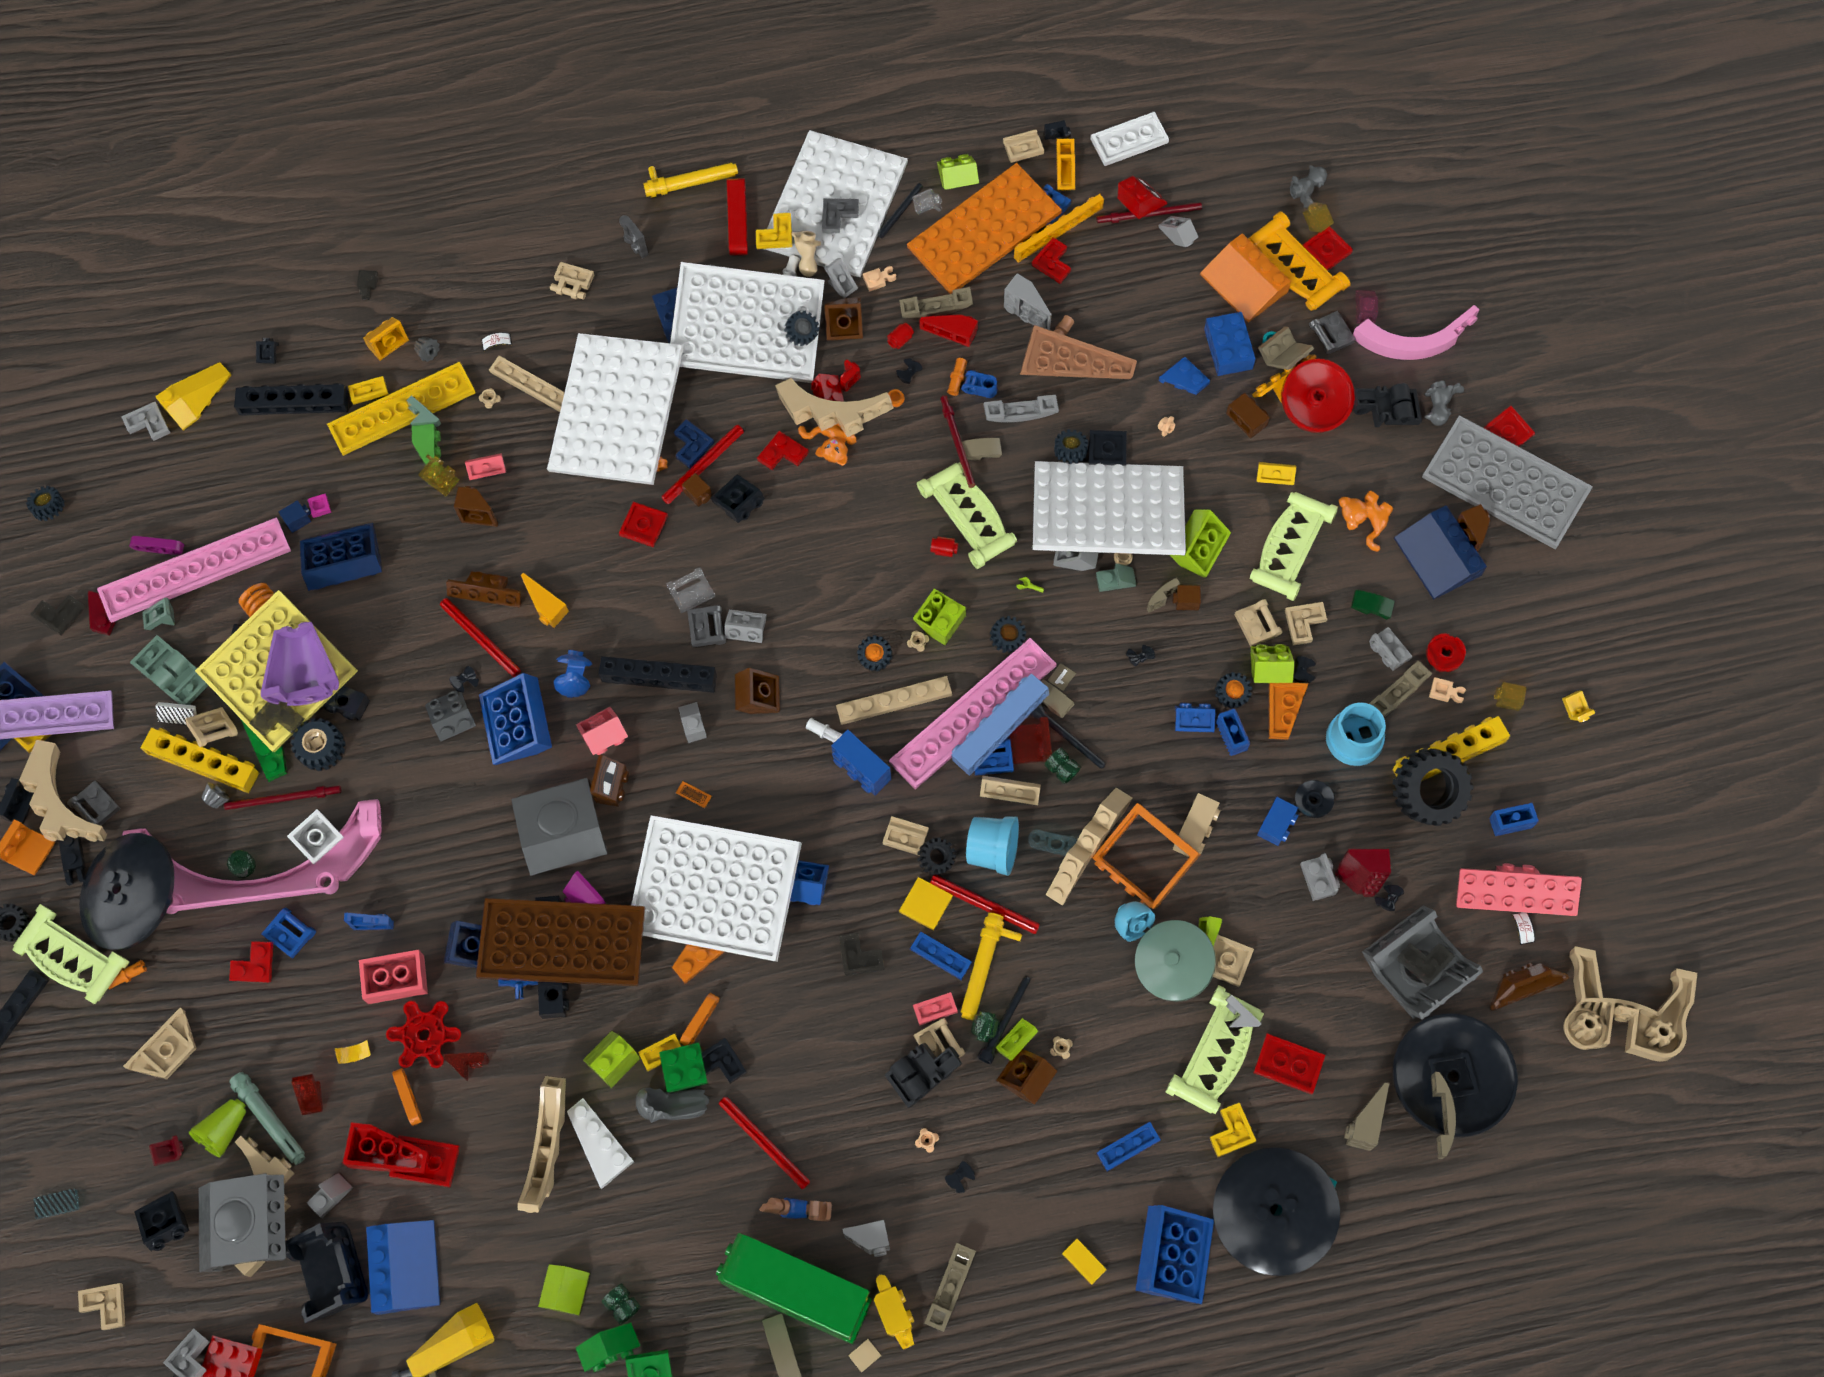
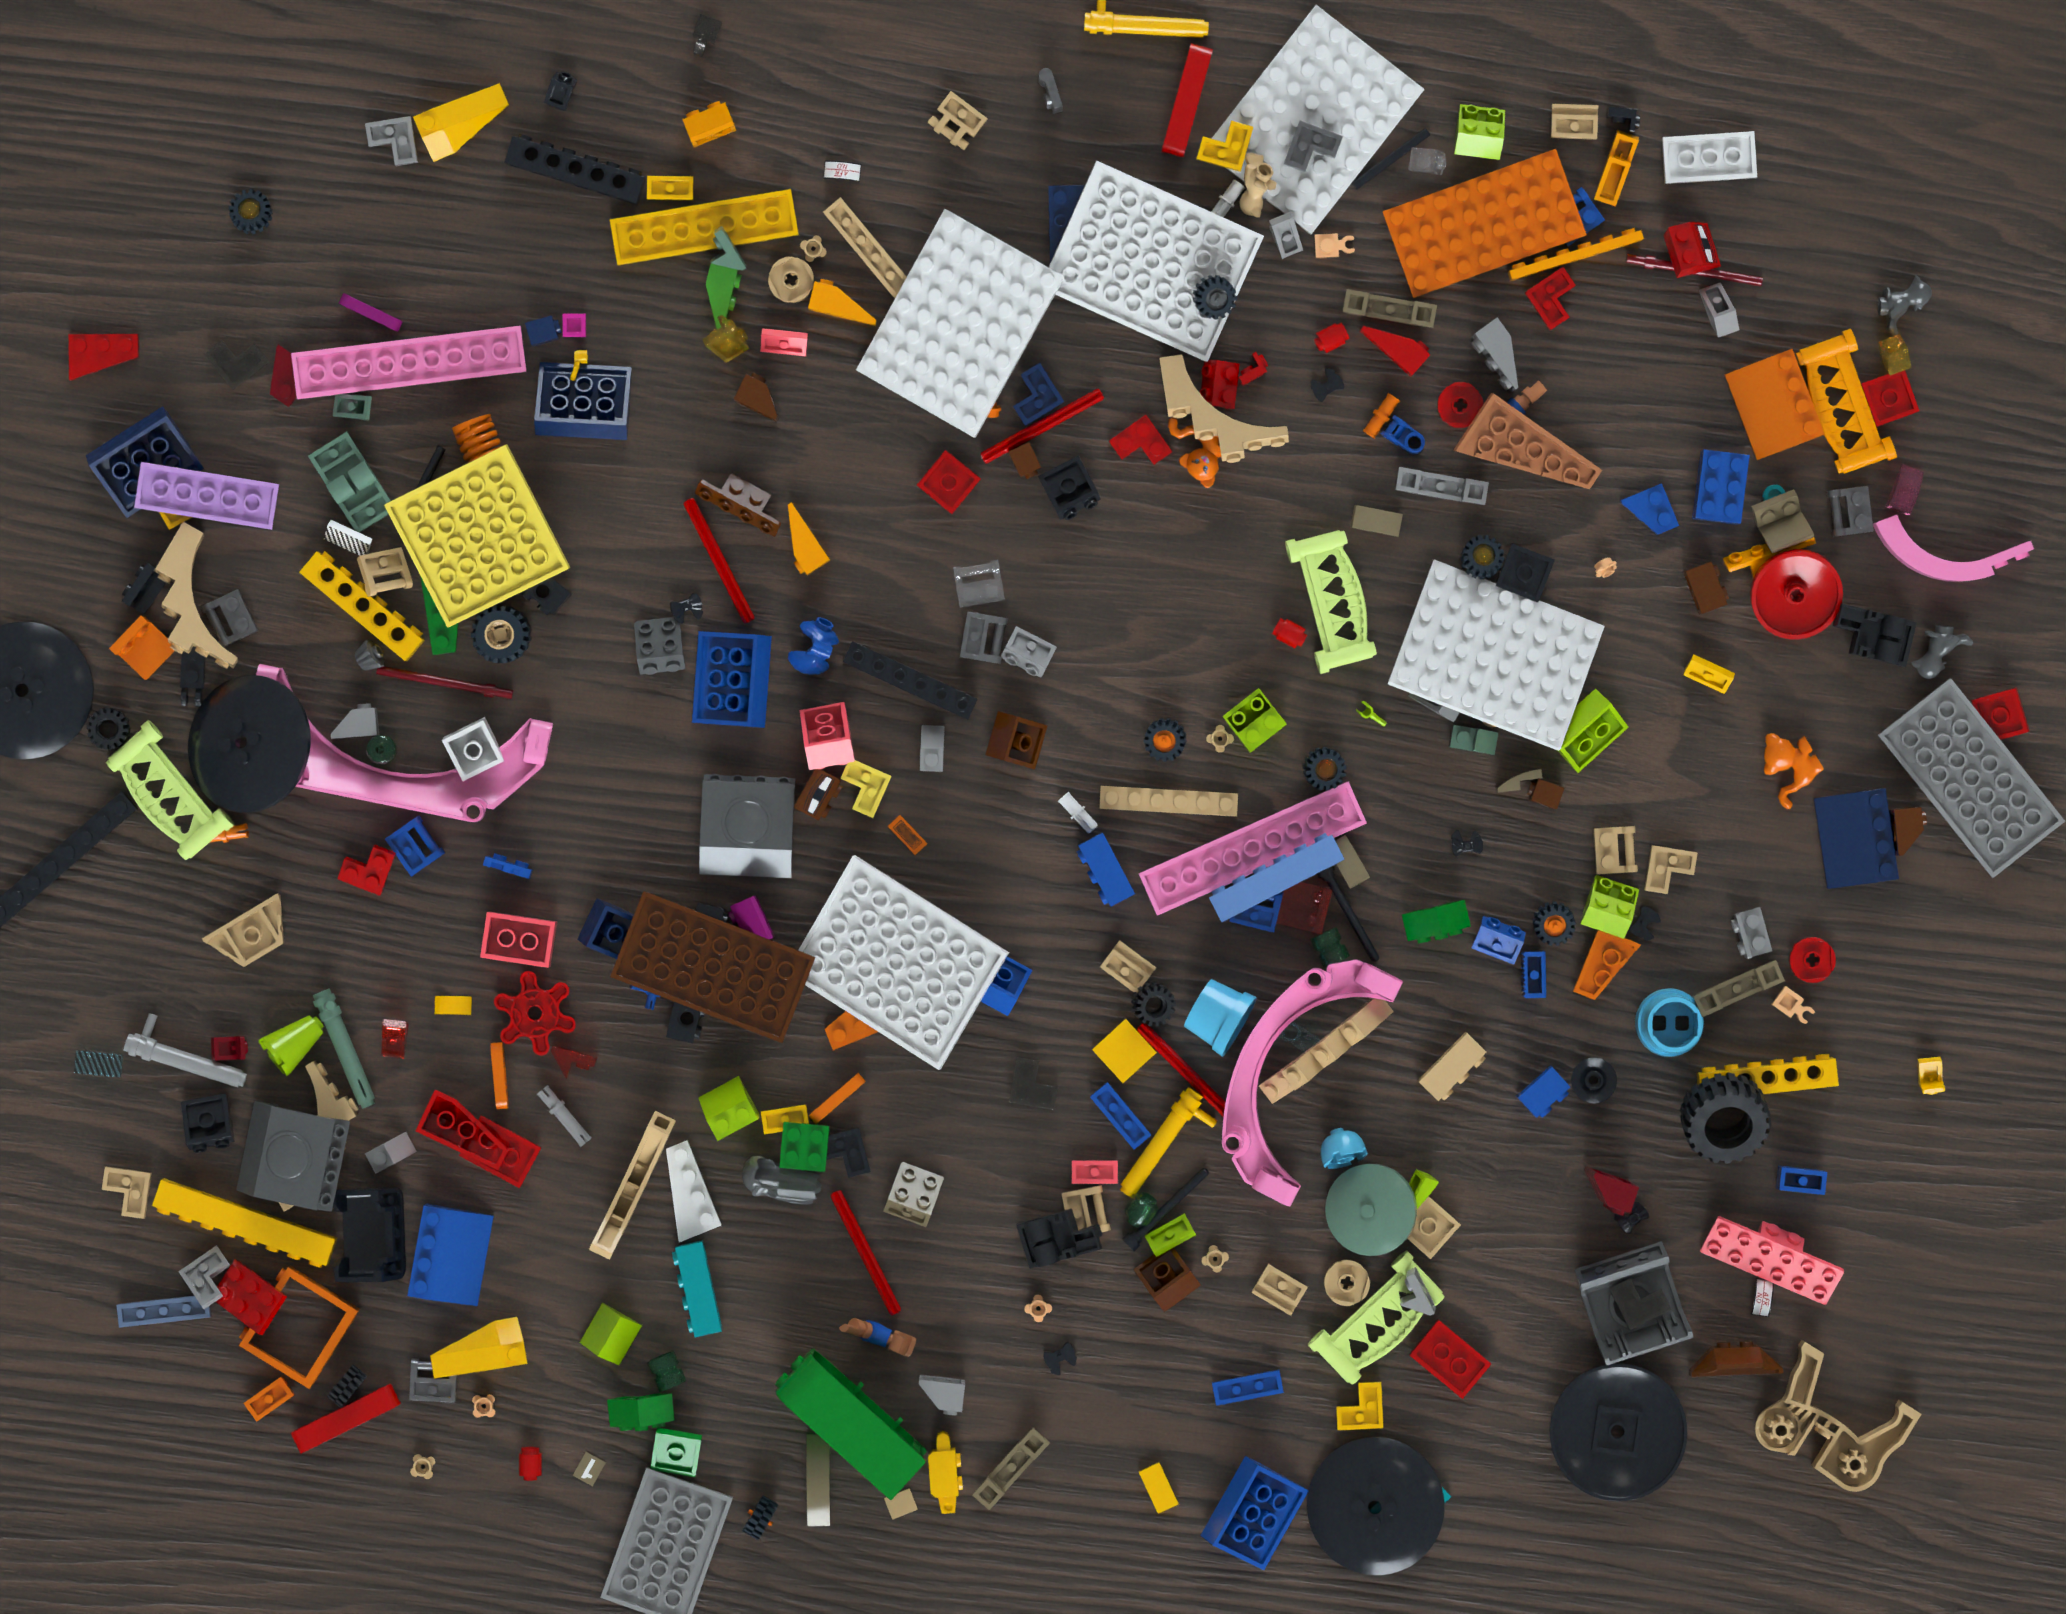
camera: 20 degrees right, 20 degrees up
(98, 1175) = (151, 1050): none -> light grey cylinder
(213, 1298) = (244, 1222): none -> yellow brick
(215, 851) = (358, 723): none -> light grey slope
(273, 714) = (465, 586): clear smoke plate -> none
(298, 668) = (506, 549): medium lavender cone -> none
(330, 527) = (580, 357): none -> yellow hand
(426, 348) = (755, 155): dark grey piece -> none
(465, 1108) = (563, 1115): none -> light grey pin
(481, 432) = (778, 276): none -> tan plate
(517, 428) = (834, 302): none -> light orange slope
(628, 1222) = (698, 1289): none -> teal brick
(652, 764) = (872, 785): none -> light yellow plate
(789, 1079) = (913, 1194): none -> bracket
(844, 319) = (1272, 291): reddish brown slope -> none
(897, 397) = (1298, 418): orange plate -> none
(948, 414) = (1354, 461): dark red bar -> none
(1009, 360) = (1451, 395): none -> red plate
(1010, 790) = (1261, 954): tan plate -> none
(1051, 809) = (1241, 1117): none -> bright pink panel
(1061, 676) = (1368, 836): dark tan sticker -> none
(1118, 877) = (1413, 1068): orange window -> none
(1124, 1054) = (1279, 1289): none -> tan plate
(1138, 716) = (1436, 922): none -> green brick
(1185, 1020) = (1357, 1275): none -> tan plate
(1284, 579) = (1733, 739): yellowish green piece -> none
(1320, 877) = (1564, 1169): light grey bracket -> none
(1366, 1127) = (1506, 1449): dark tan slope -> none
(1372, 603) = (1753, 873): dark green slope -> none
(1441, 1089) = (1575, 1499): dark tan slope -> none
(1510, 696) = (1861, 1036): clear yellow brick -> none

